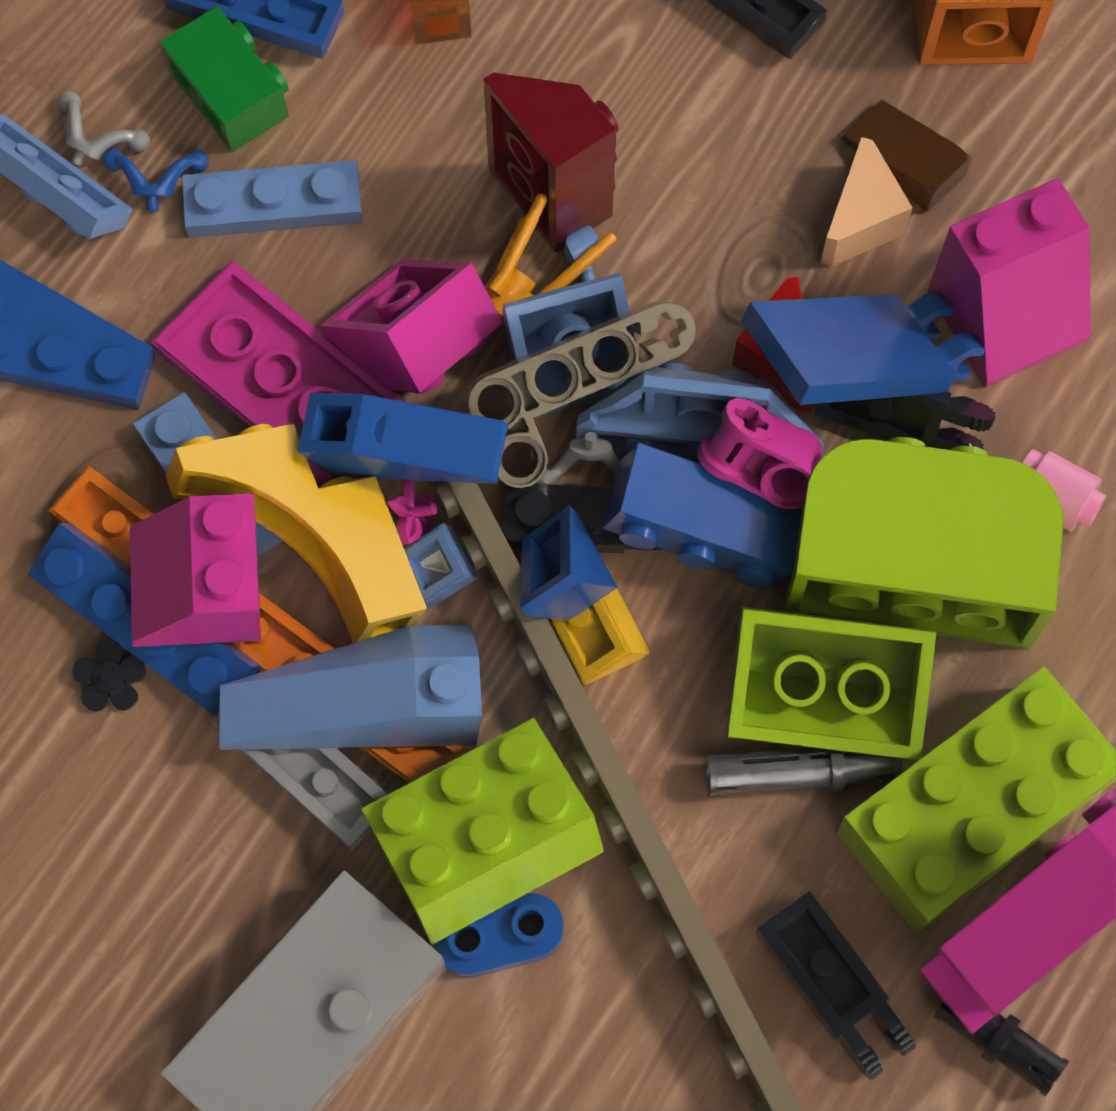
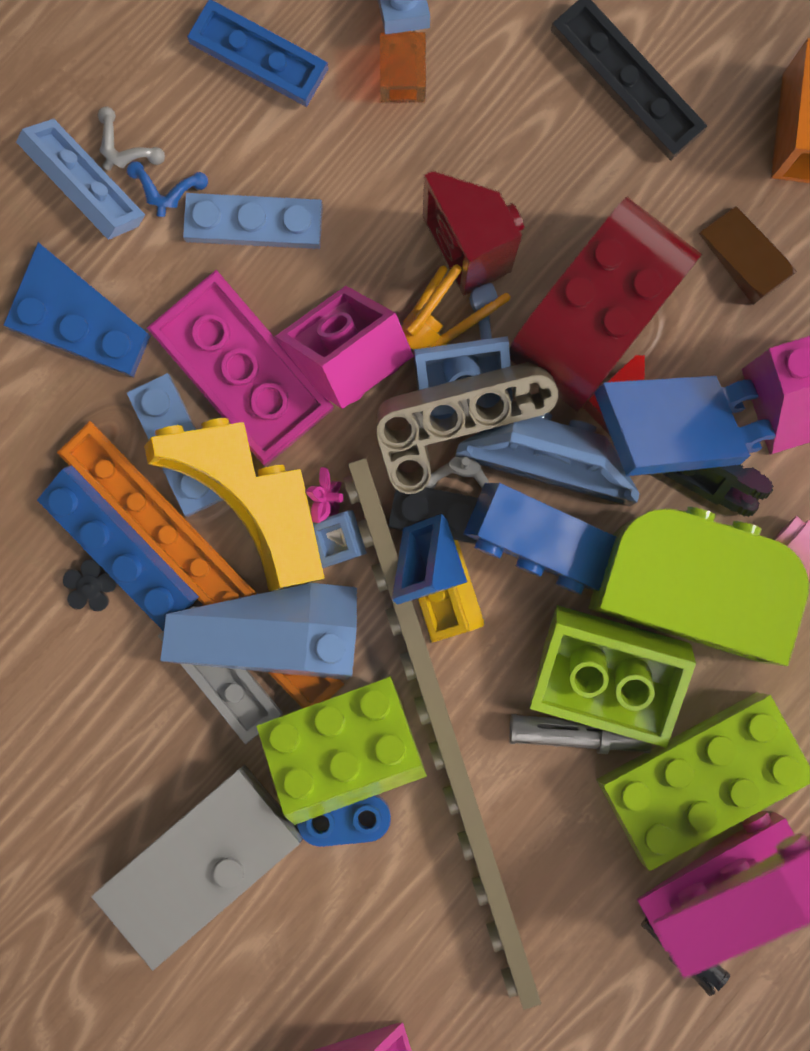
camera: 10 degrees right, 15 degrees up
(196, 573) = (157, 529): dark pink slope -> none
(226, 77) = (228, 115): green brick -> none
(399, 440) = (323, 450): blue slope -> none
(734, 218) = (603, 301): none -> dark red brick
(765, 454) = (596, 506): dark pink piece -> none
(832, 980) = (573, 888): black hinge -> none
(869, 208) = (709, 298): light nougat slope -> none

